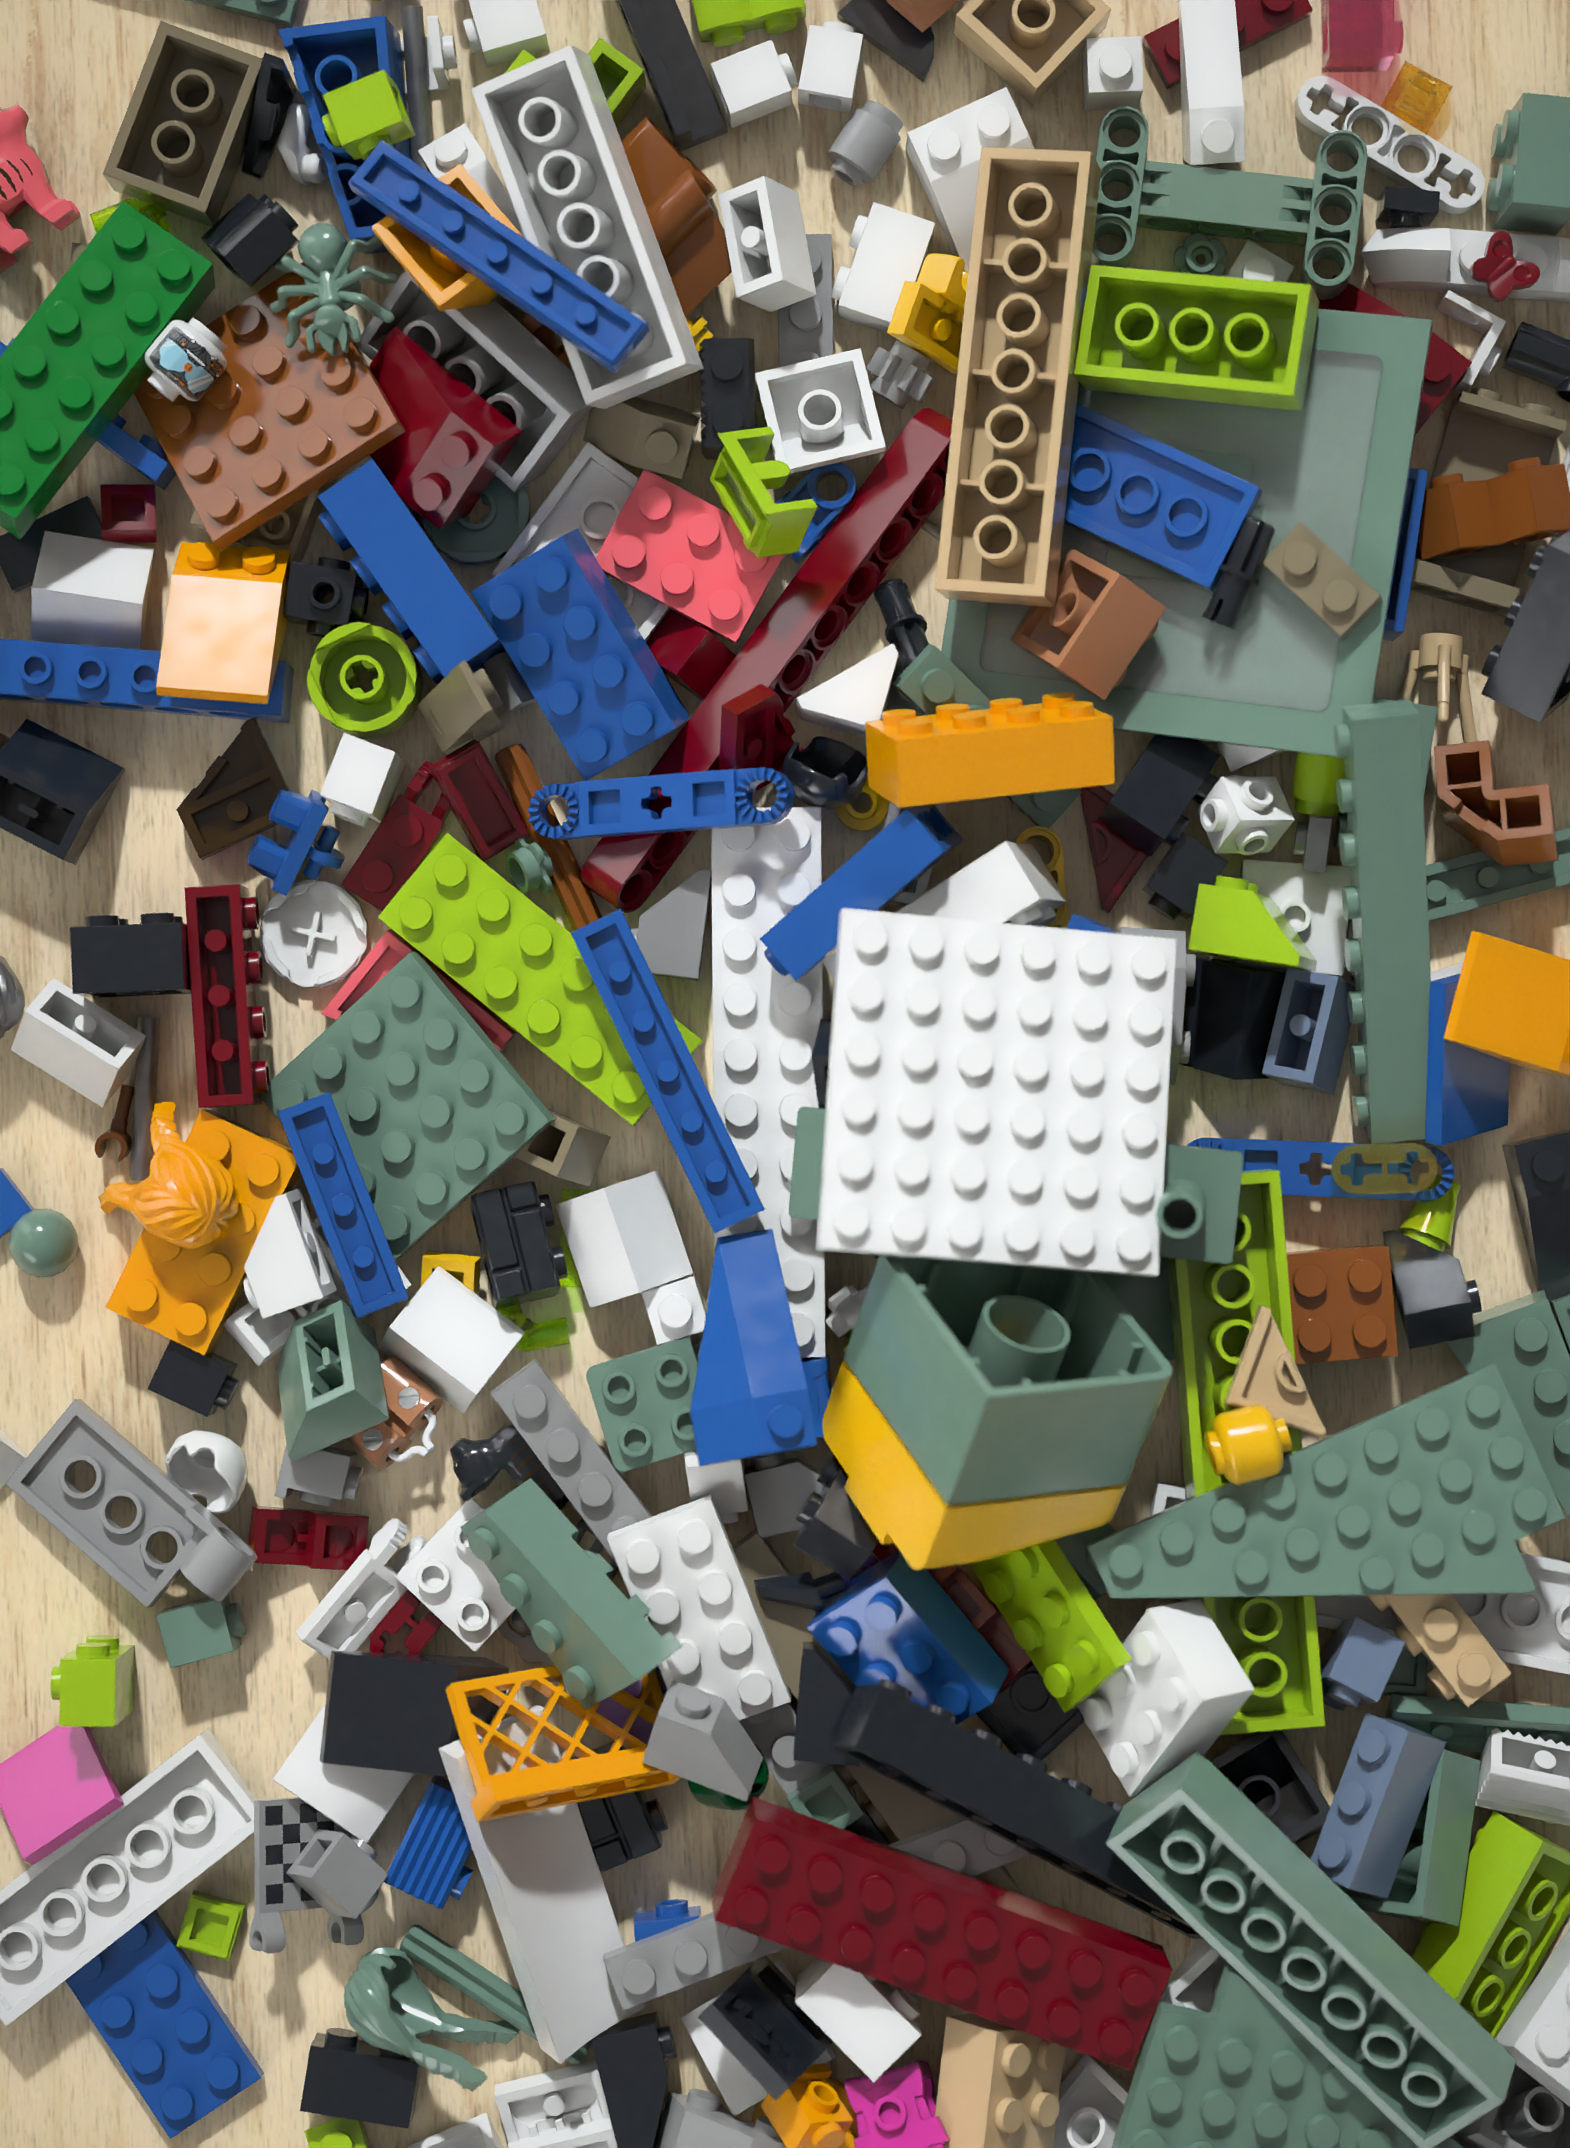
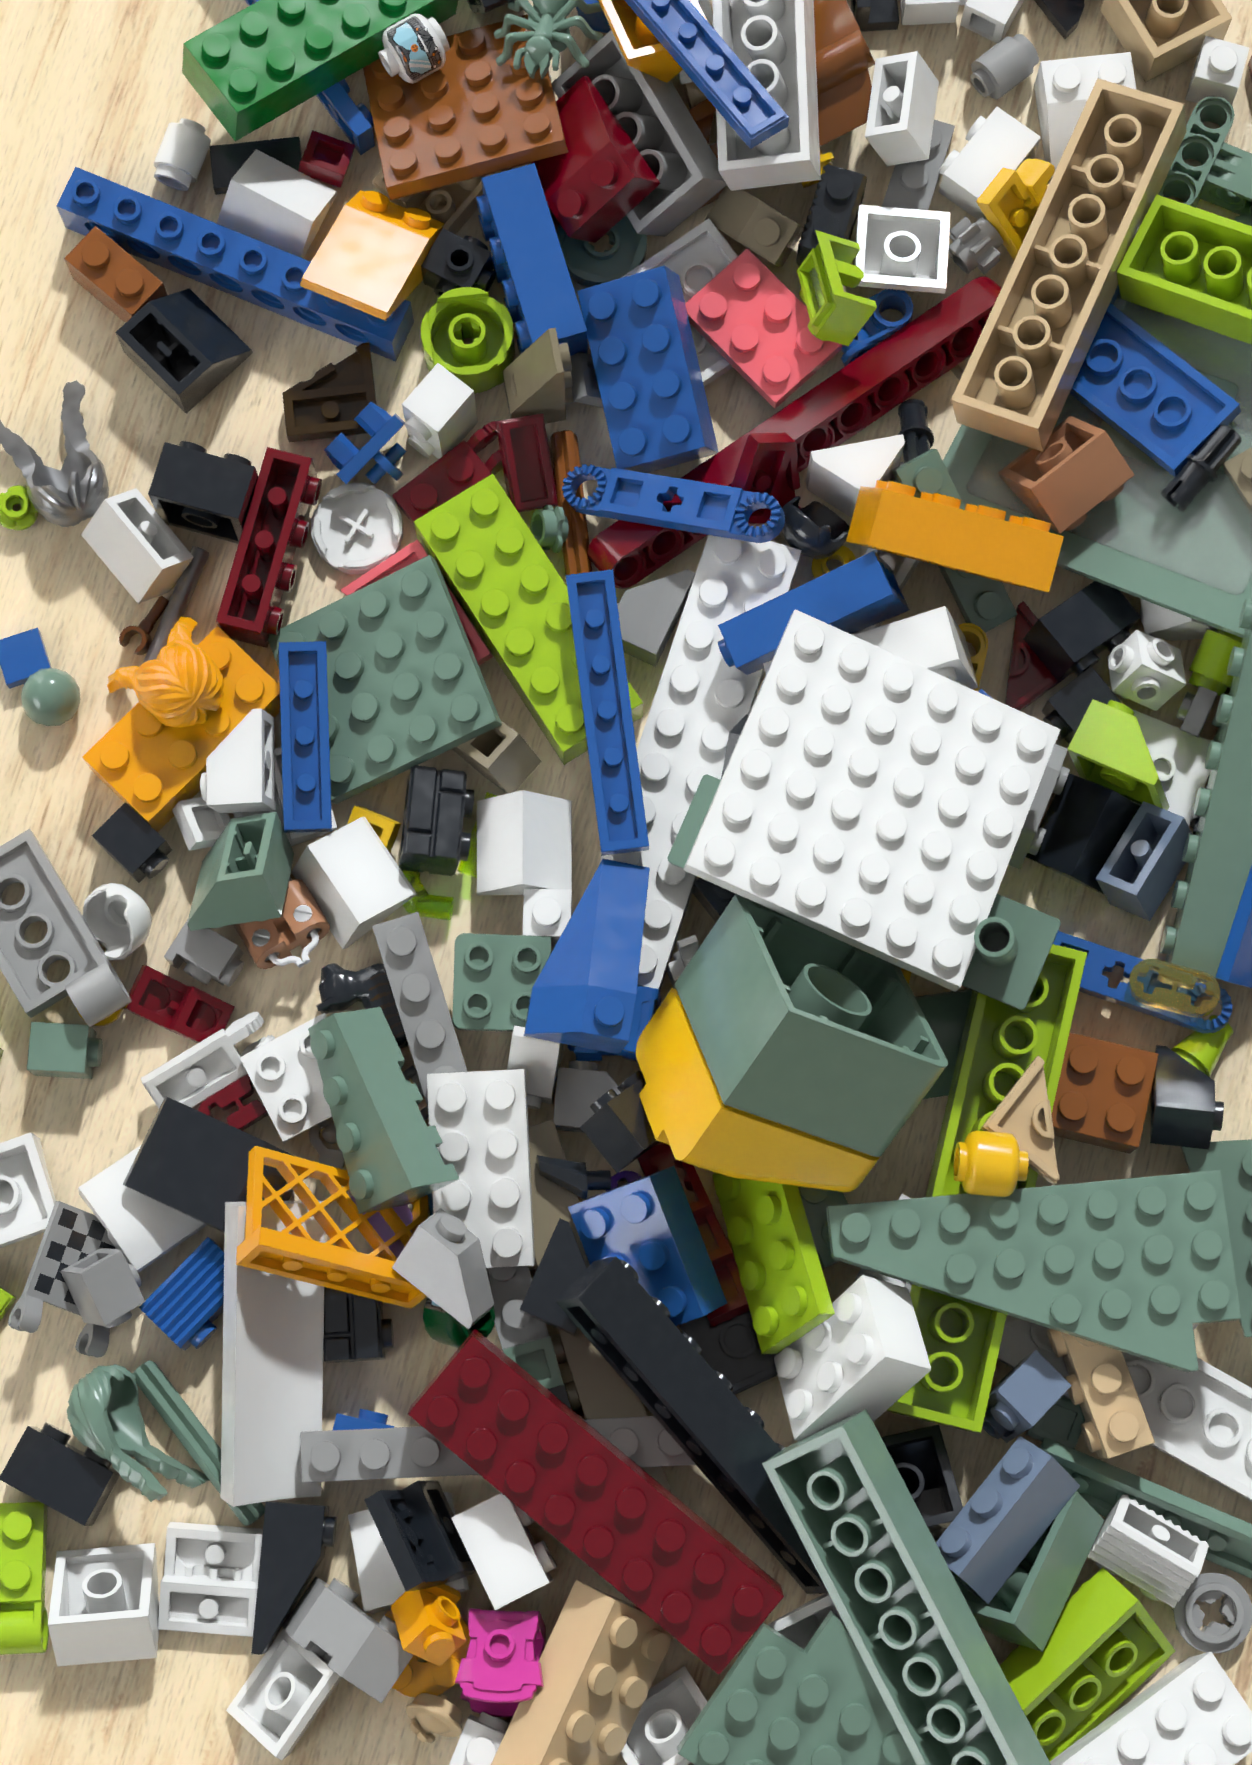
camera: 20 degrees right, 10 degrees down
(689, 653) = (735, 405): dark red slope -> none

